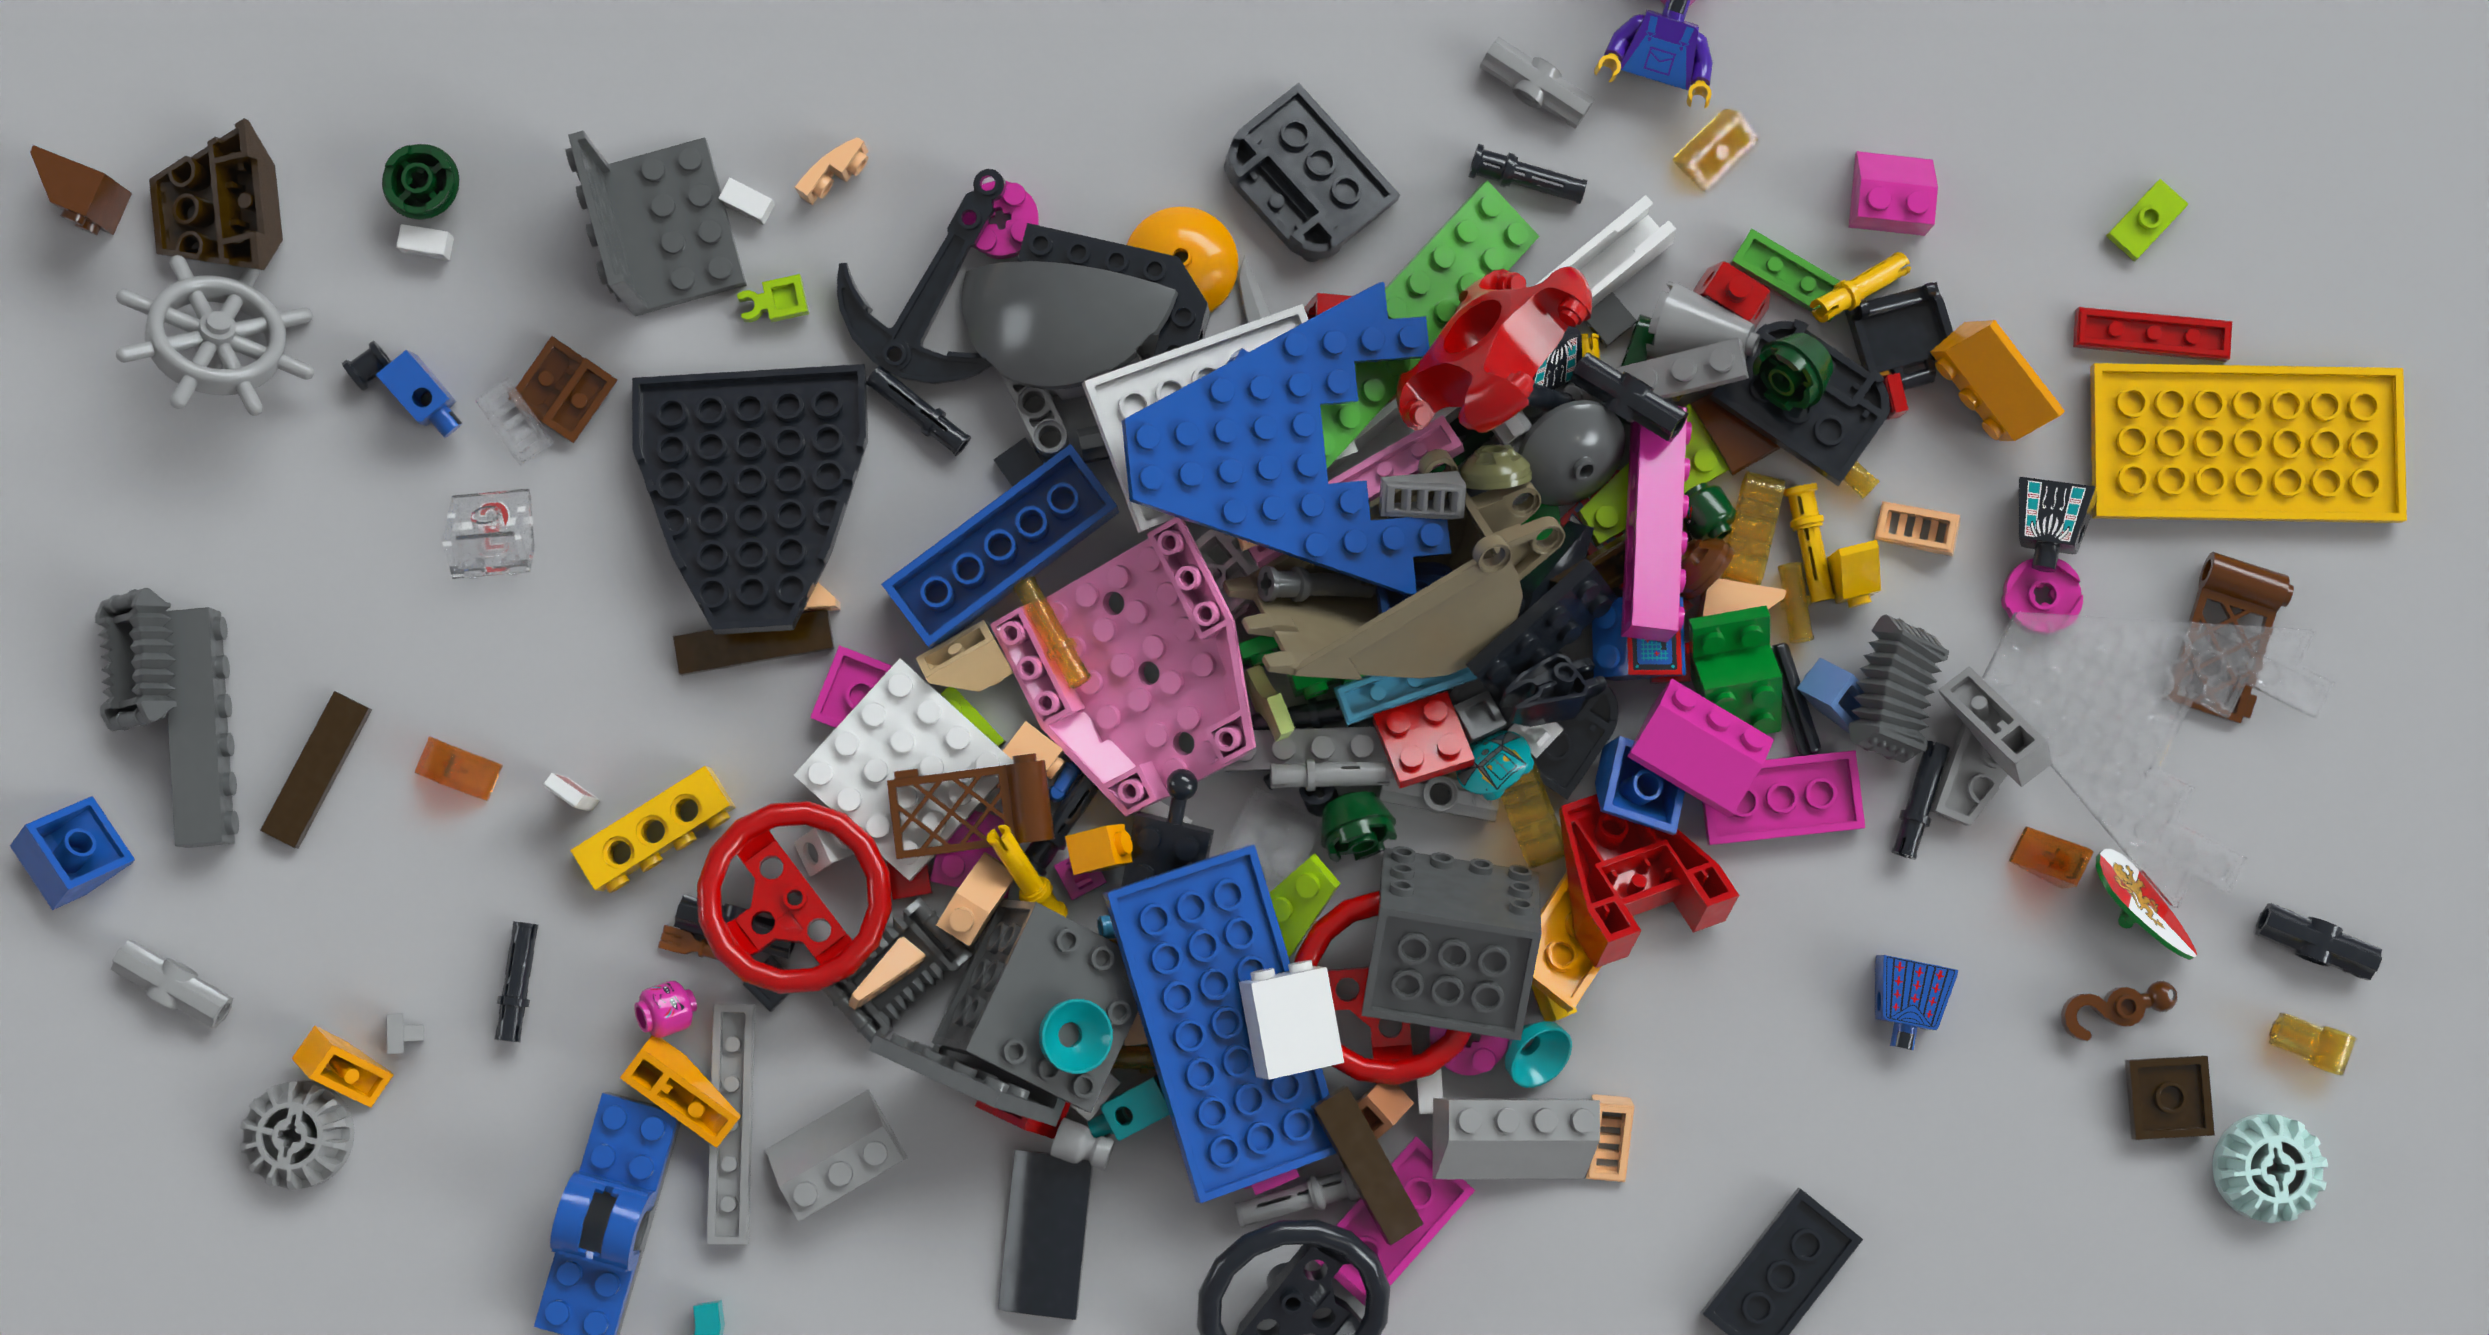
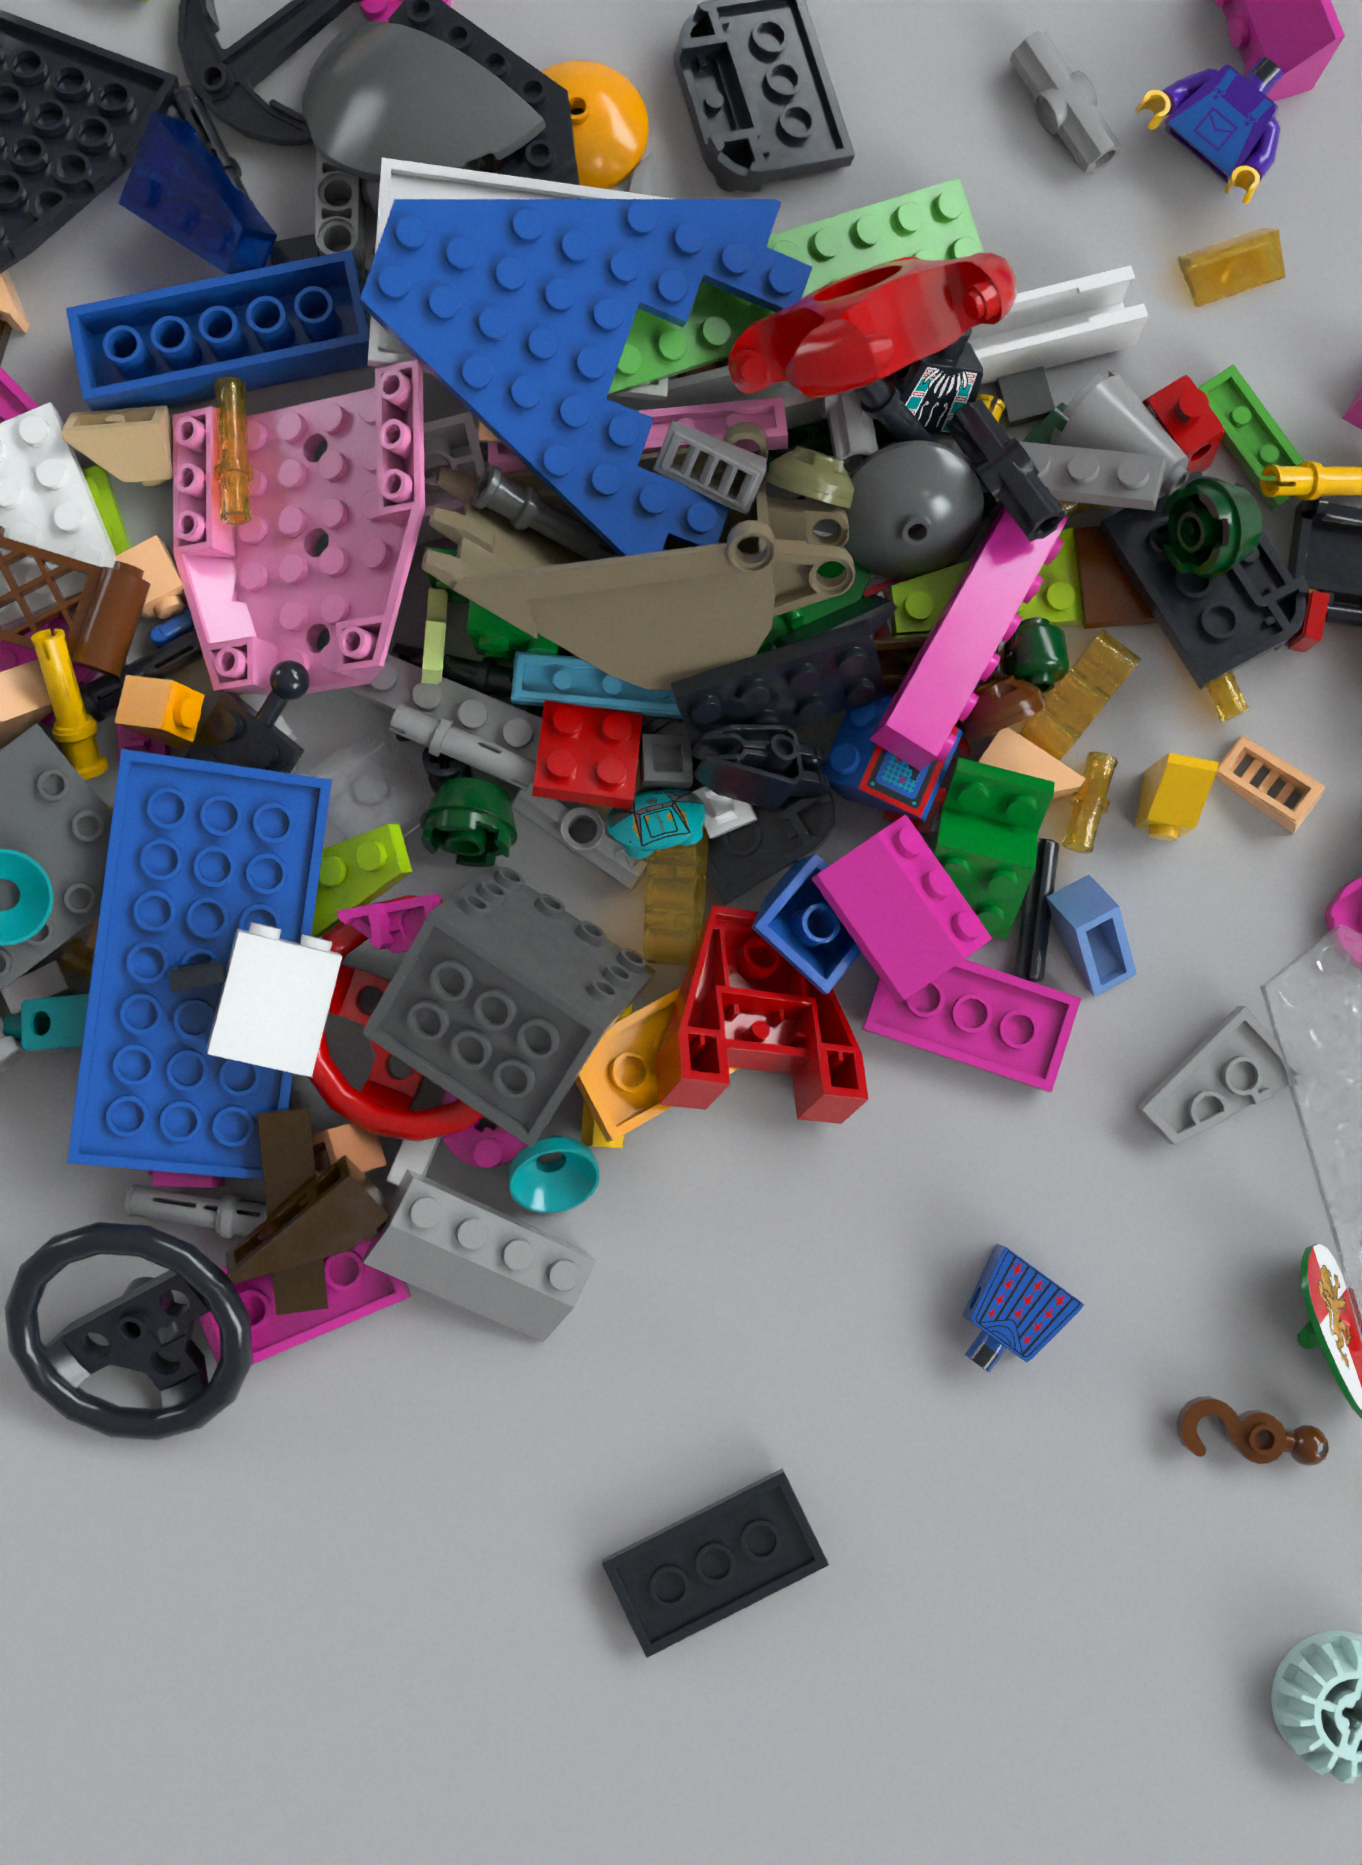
camera: 25 degrees right, 0 degrees up
(934, 460) = (192, 199): none -> clear blue wedge
(1231, 1028) = (196, 974): none -> black tile
(1349, 925) = (391, 923): none -> dark pink slope
(1393, 1164) = (316, 1223): none -> dark brown slope
(1572, 188) = (989, 184): black pin -> none
(1616, 1105) = (613, 1273): light nougat slope -> none
(1807, 524) = (1143, 721): yellow pin -> none
(1896, 690) = (1160, 950): dark grey piece -> none
(1919, 804) = (1118, 1103): black pin -> none
(1997, 726) = (1260, 1046): light grey slope -> none
(2051, 858) = (1252, 1226): clear orange slope -> none
(2169, 1097) = (1264, 1568): dark brown plate -> none

